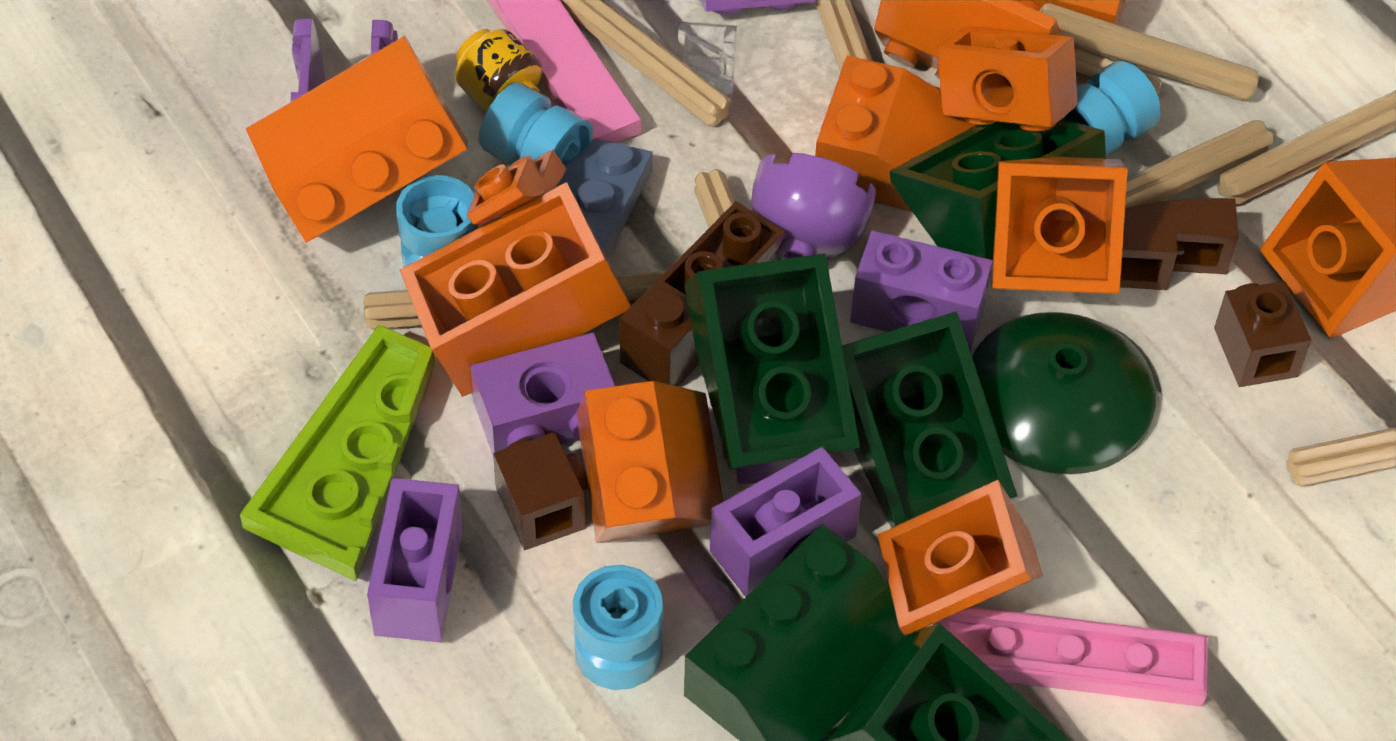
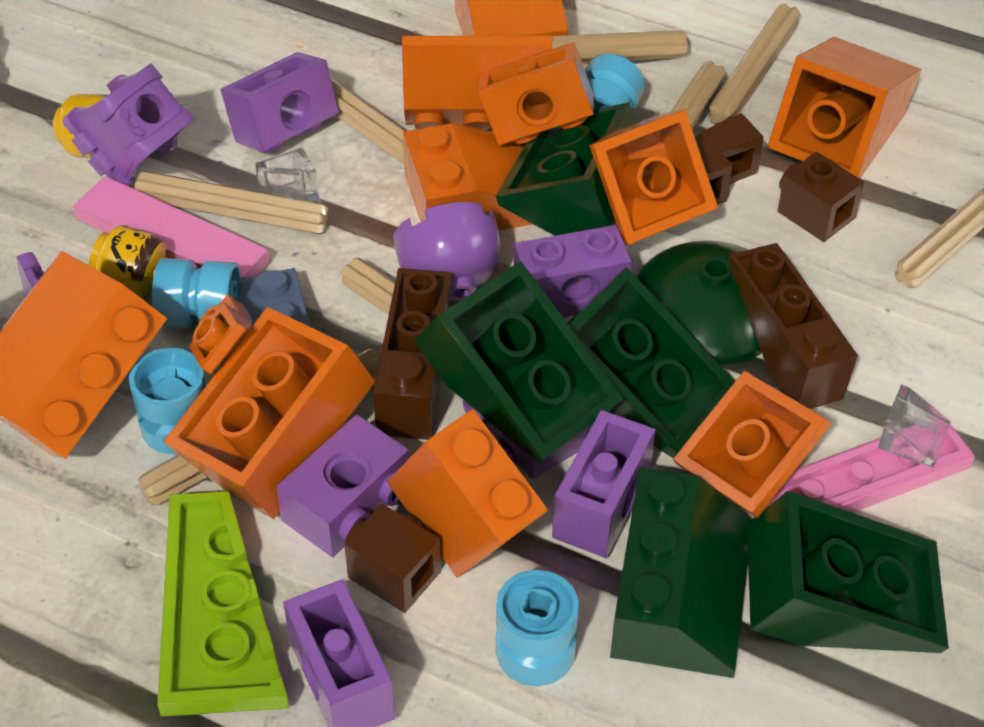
camera: 30 degrees left, 5 degrees down
(1106, 460) = (794, 331): none -> reddish brown slope
(1152, 631) = (914, 428): none -> clear slope

